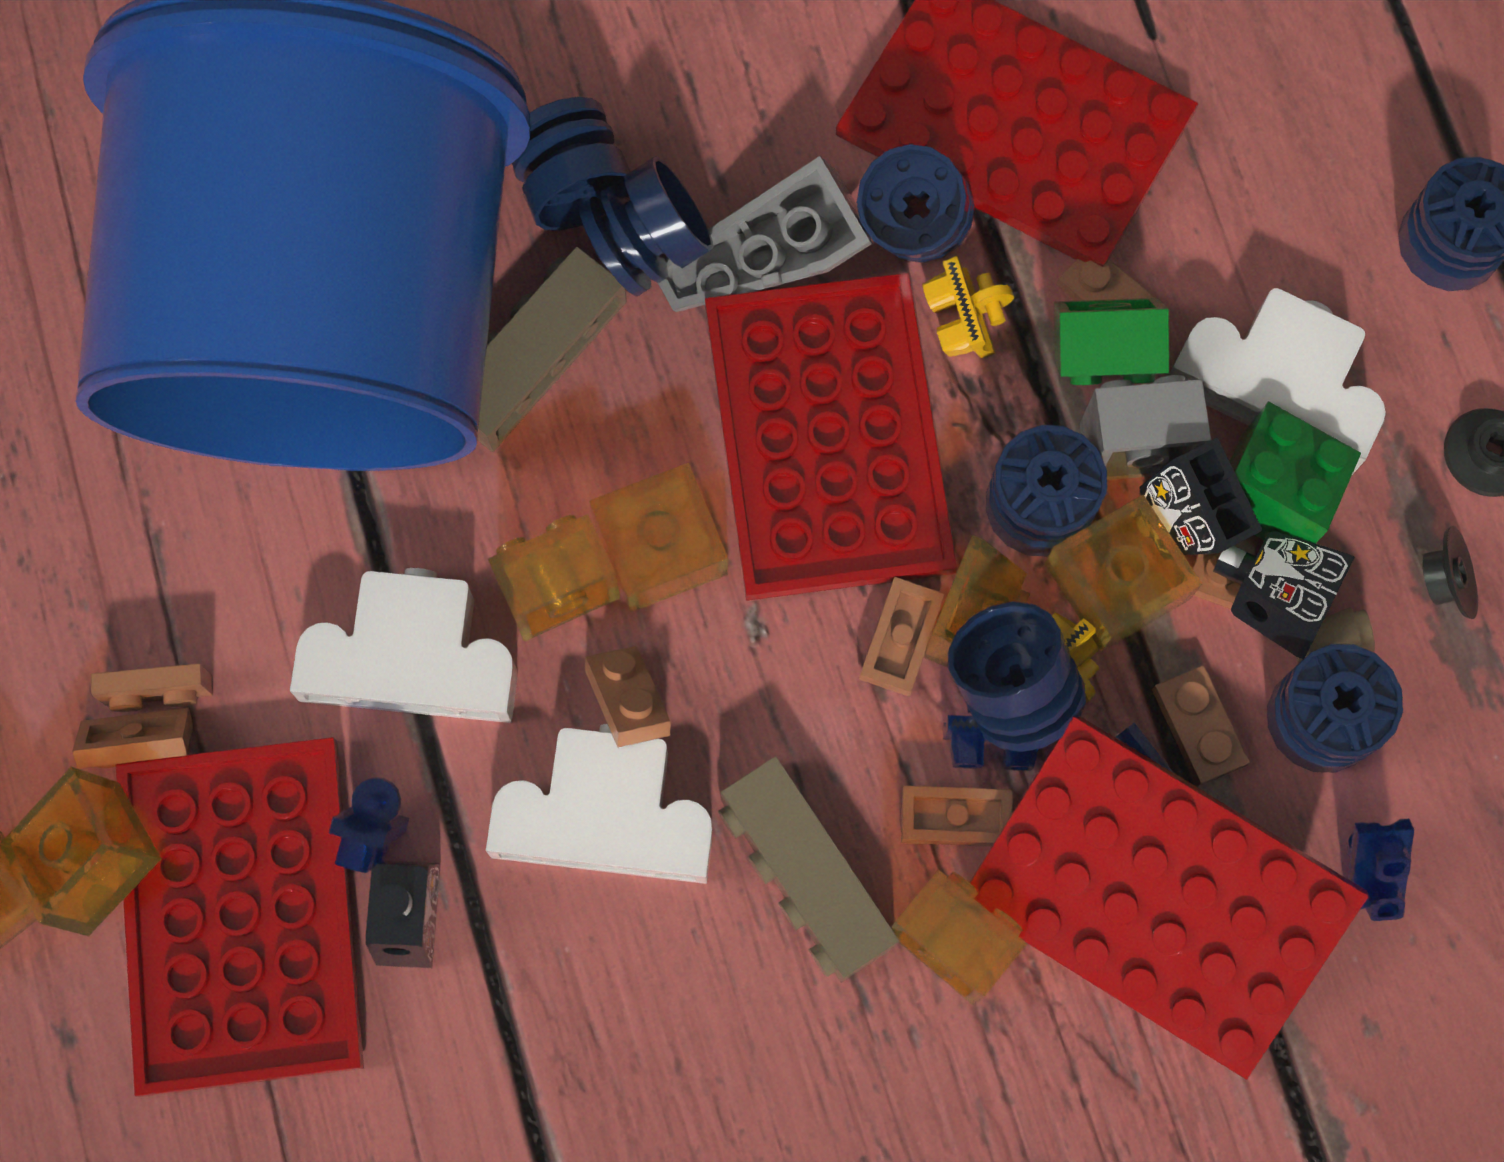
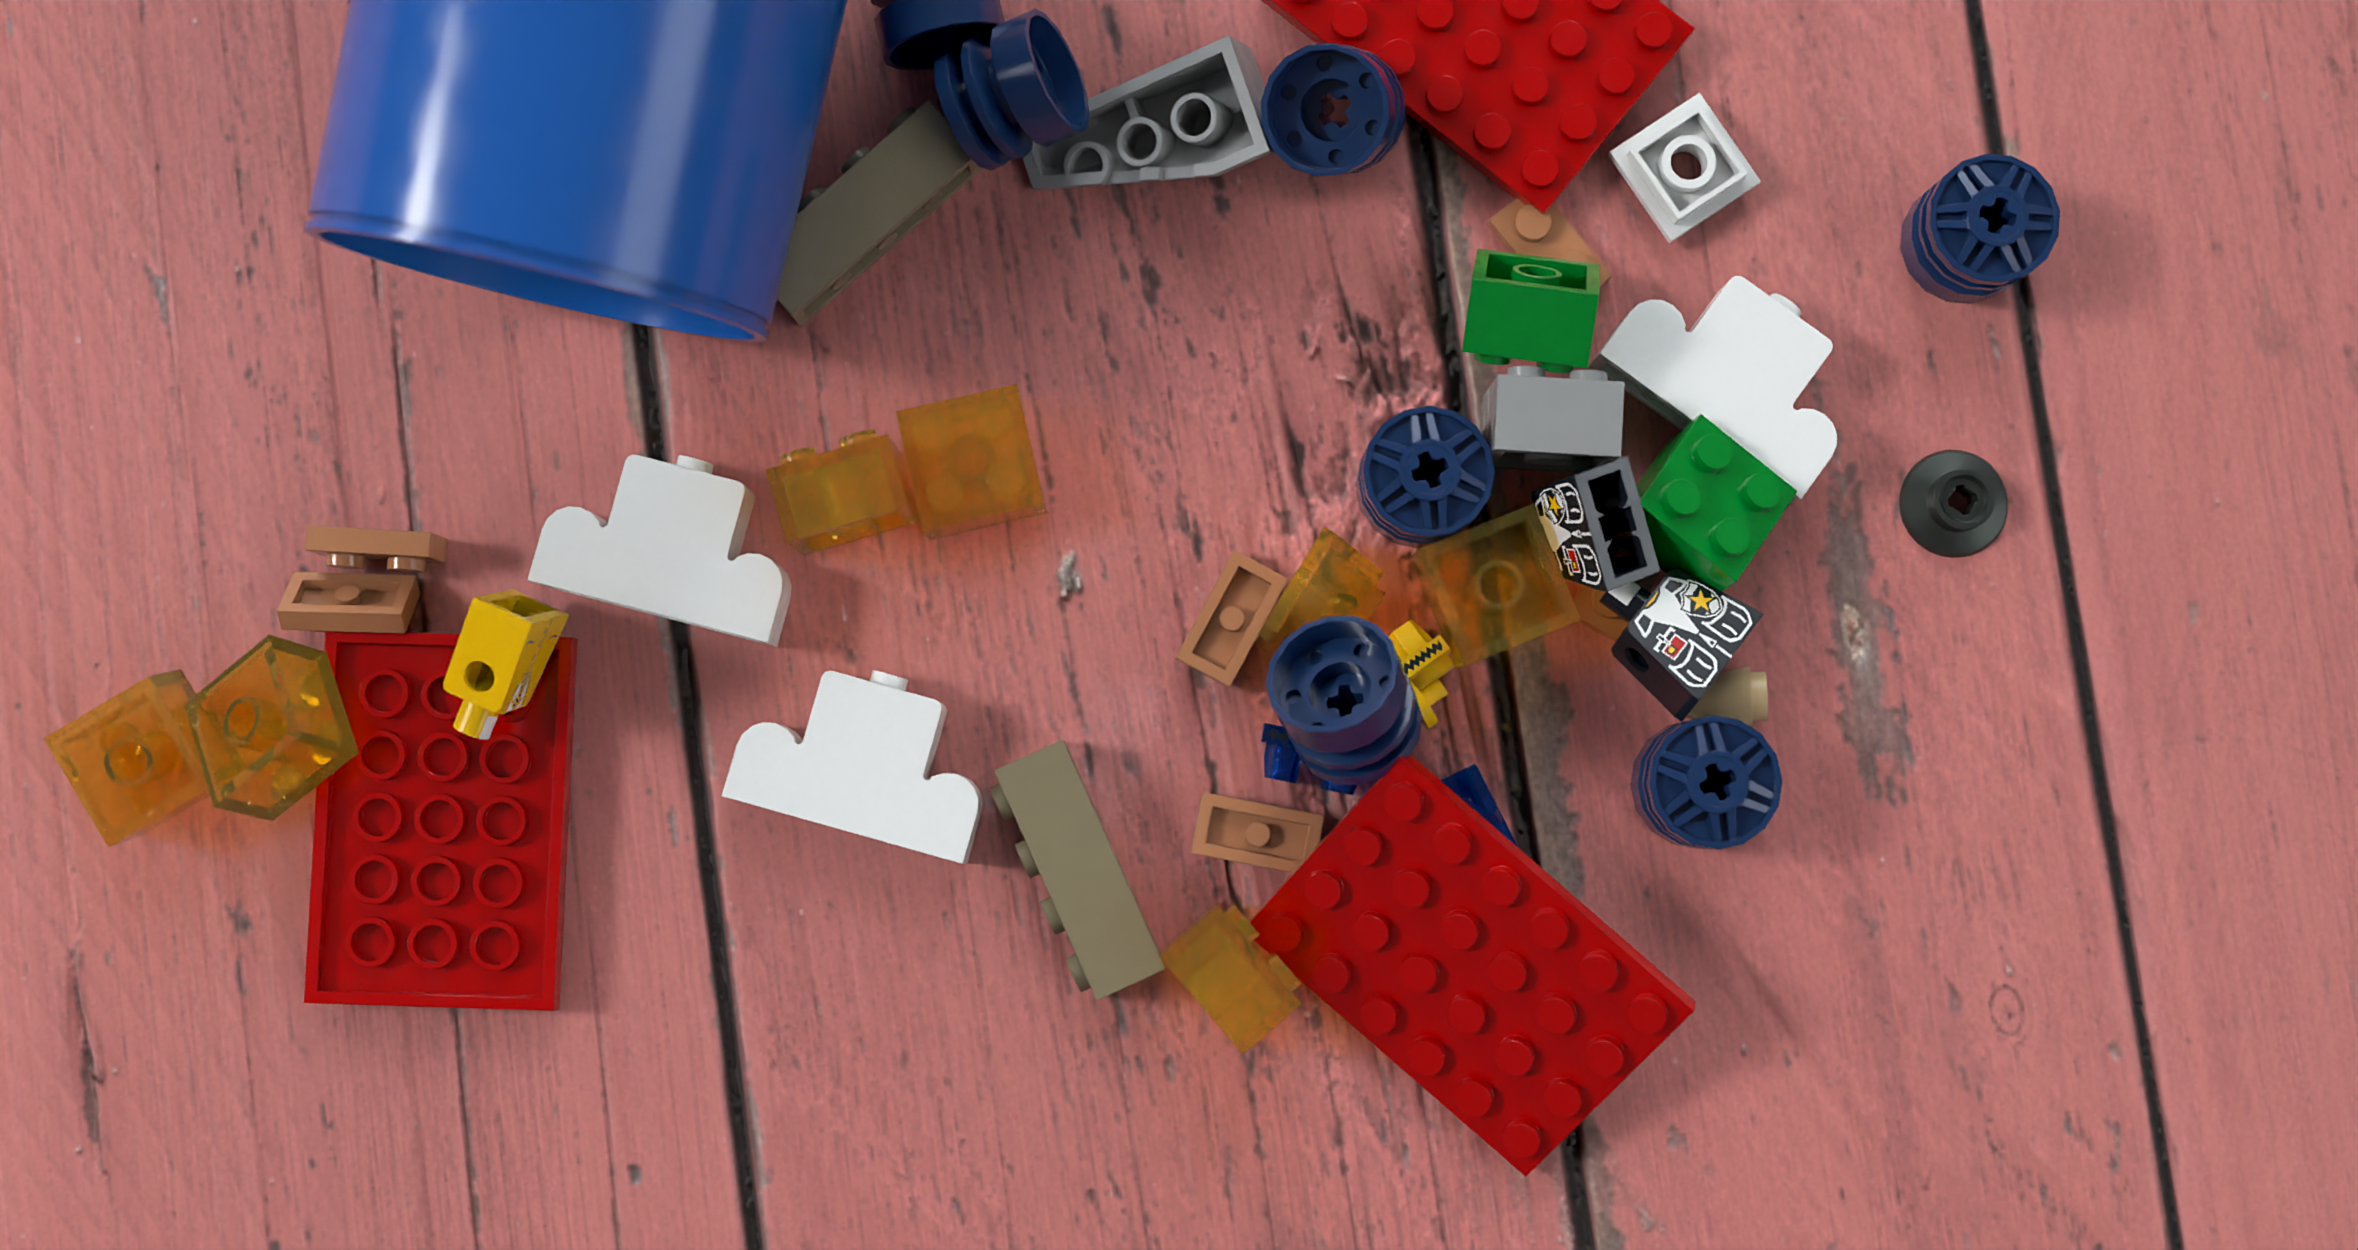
camera: 10 degrees right, 10 degrees up
(280, 737) = (500, 657): none -> yellow torso
(369, 825) = (595, 747): clear blue hips -> none
(402, 913) = (622, 844): black torso -> none
(627, 696) = (907, 643): nougat plate -> none
(829, 437) = (1188, 368): red plate -> none
(957, 289) = (1369, 215): yellow hips -> none
(1200, 726) = (1553, 773): nougat plate -> none
(1205, 240) = (1672, 201): none -> white piece
(1381, 866) = (1721, 970): clear blue hips -> none
(1451, 574) = (1875, 646): pearl dark grey piece -> none

